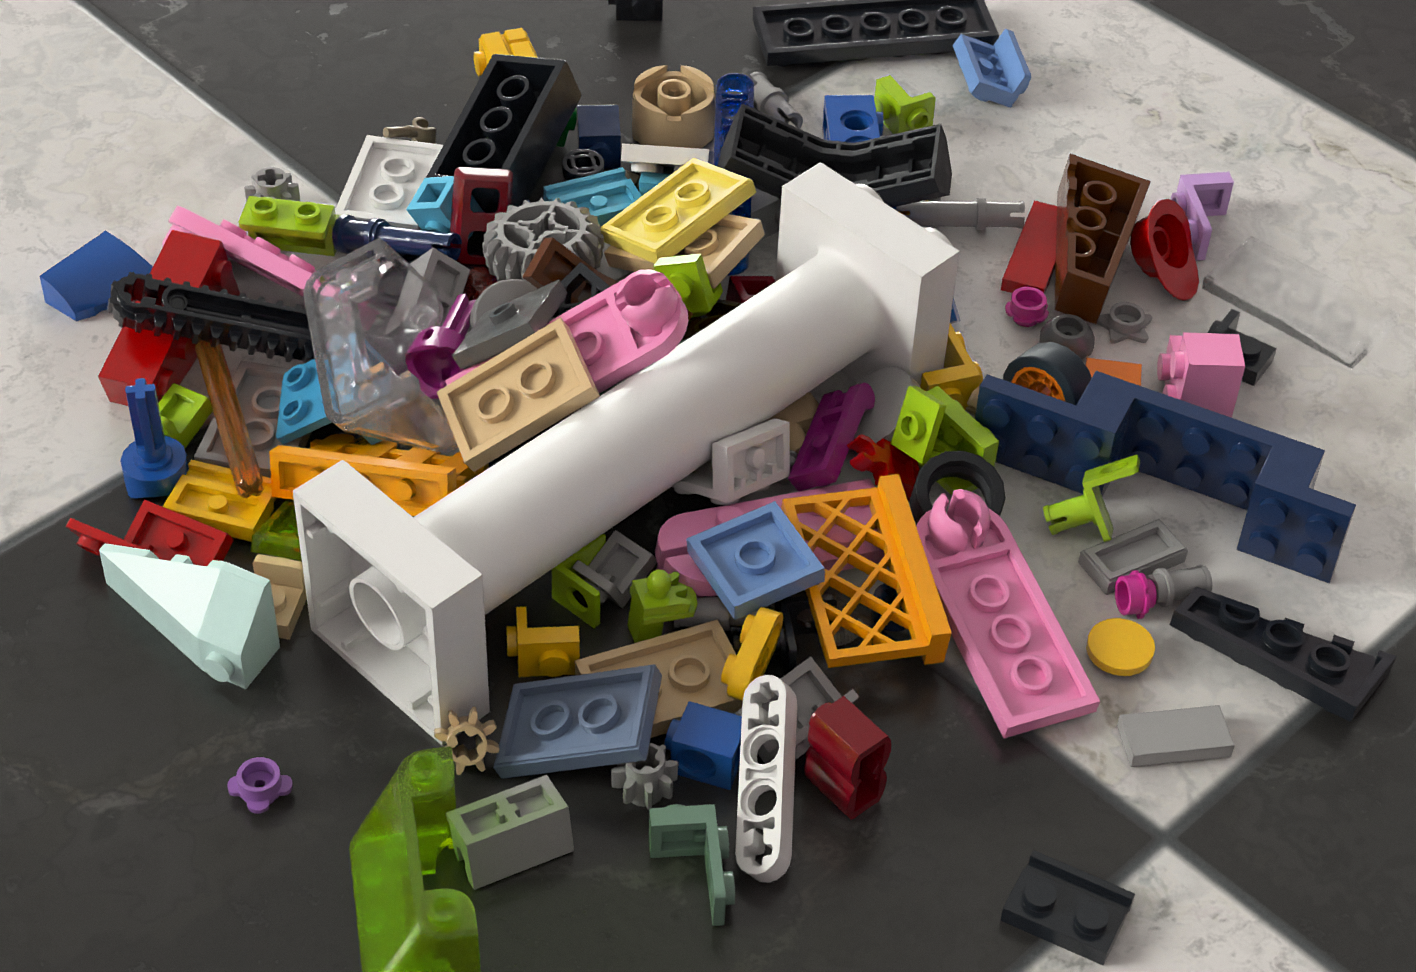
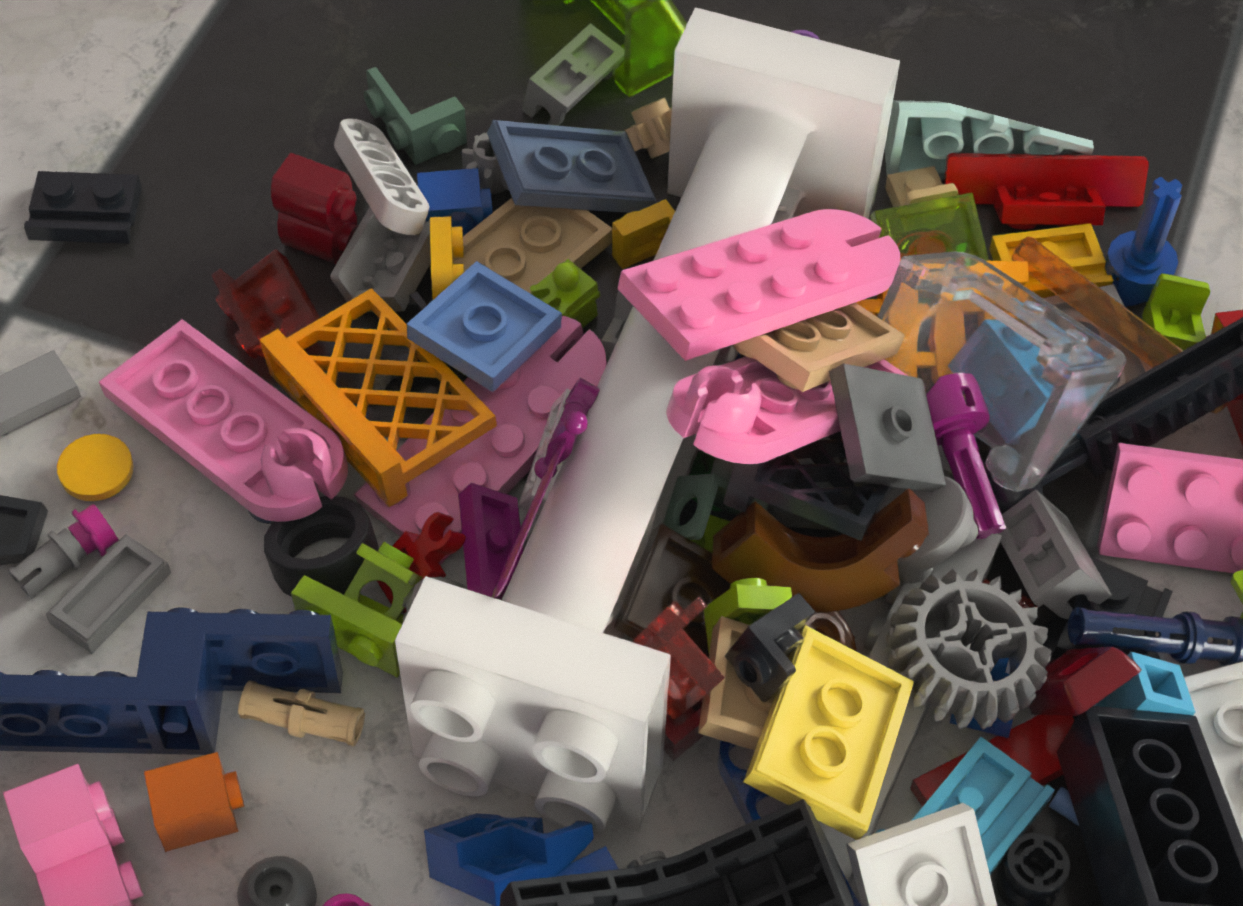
camera: 155 degrees right, 10 degrees up
(535, 400) = (761, 280): none -> bright pink plate
(693, 232) = (763, 648): none -> black bracket
(758, 247) = (690, 669): none -> clear red bracket
(764, 378) = (571, 423): none -> magenta sword
(925, 712) = (264, 300): none -> clear red bracket
(959, 374) = (379, 731): yellow bracket -> none
(1050, 371) = (265, 739): black wheel -> none
(1090, 505) = (159, 593): lime bracket -> none

